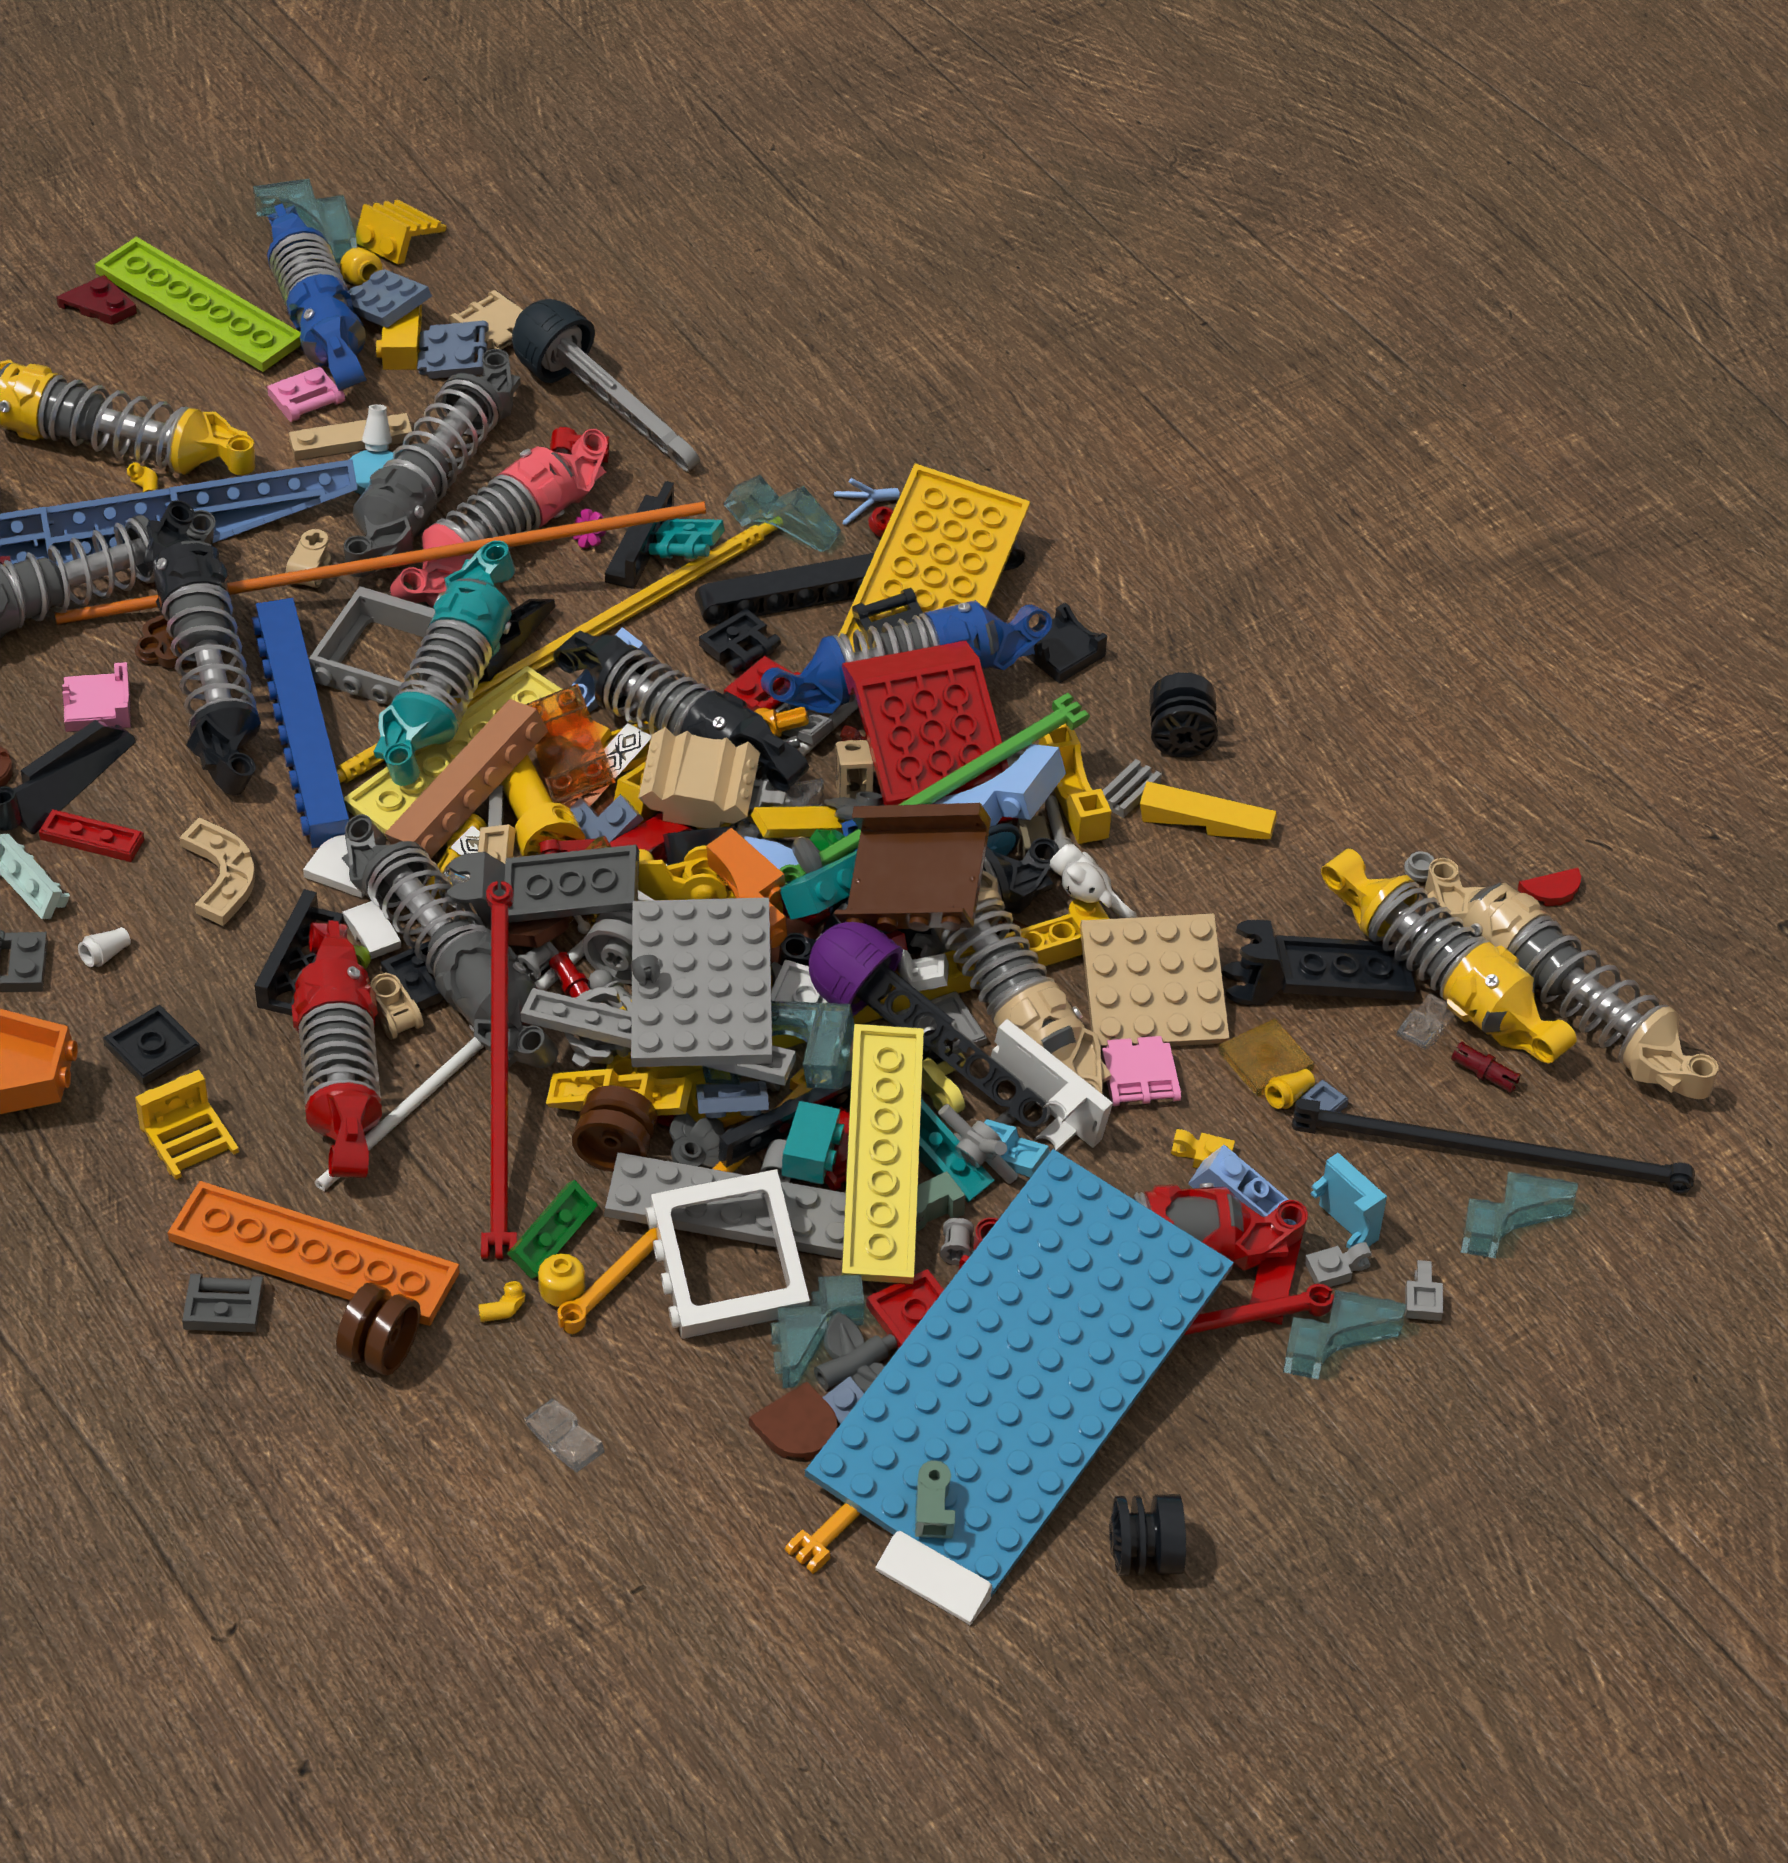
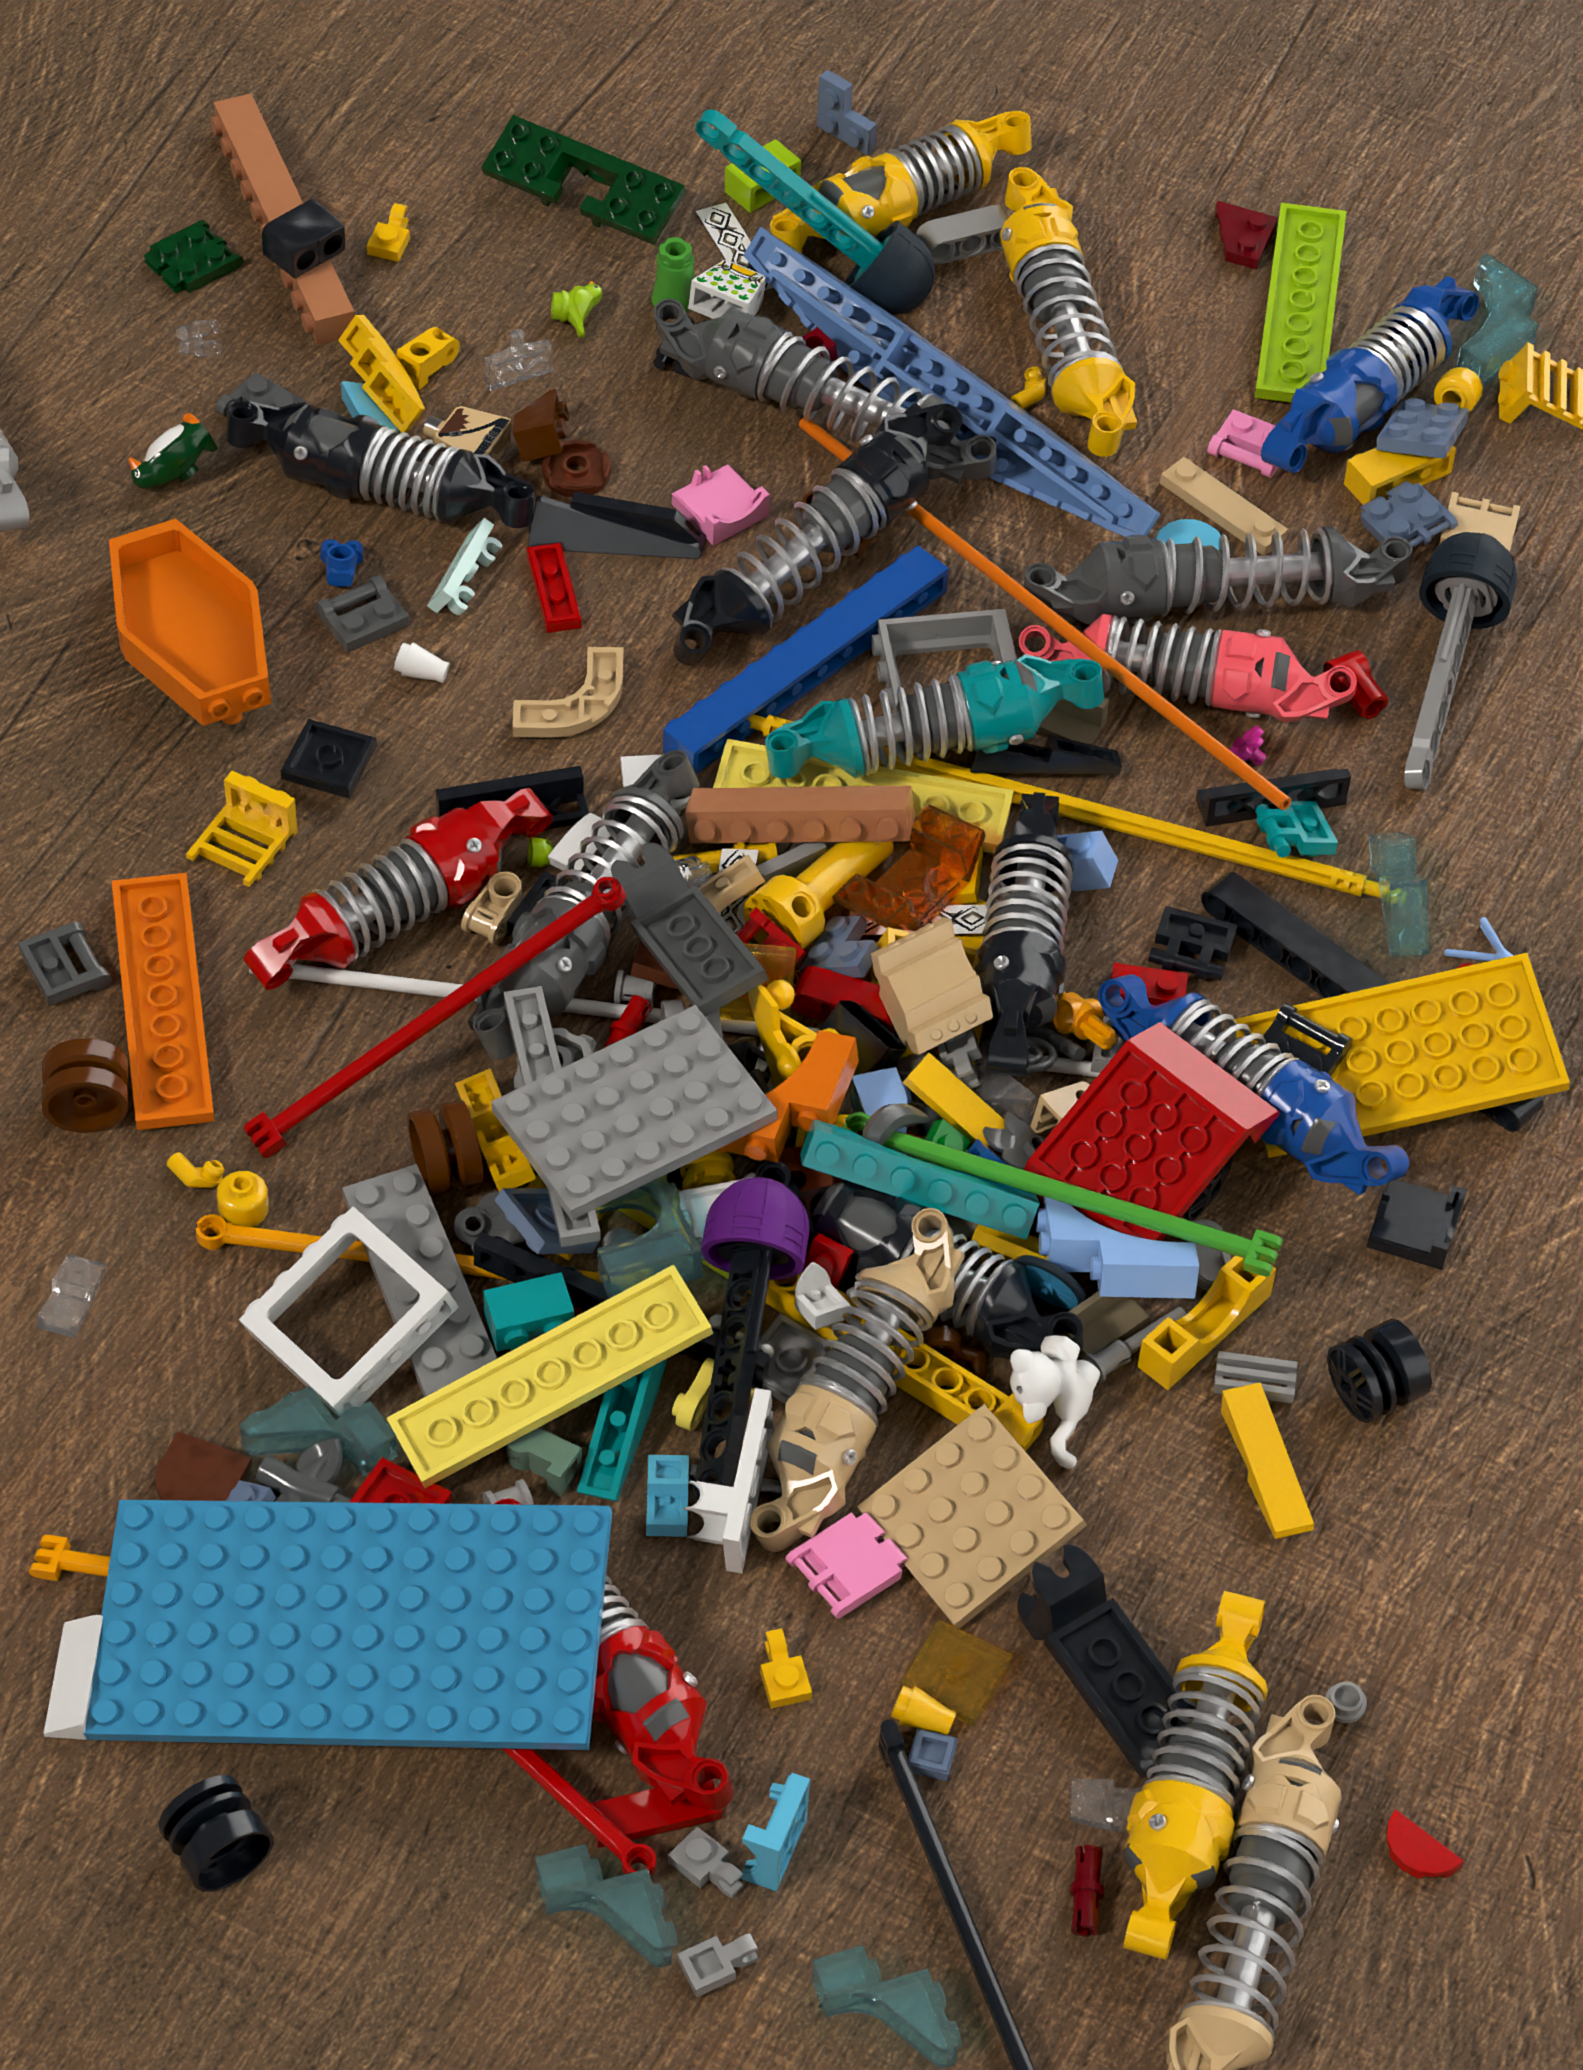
camera: 60 degrees right, 5 degrees up
(310, 553) = (1018, 553): tan piece -> none
(377, 430) = (1230, 515): white cone -> none
(552, 1228) = (306, 1163): green plate -> none
(646, 968) = (596, 1053): dark grey hinge -> none
(917, 866) = (894, 1215): reddish brown panel -> none
(931, 1491) = (134, 1618): sand green leg -> none
(978, 1143) = (627, 1456): light grey bar -> none
(1230, 1171) = (743, 1734): light blue slope -> none

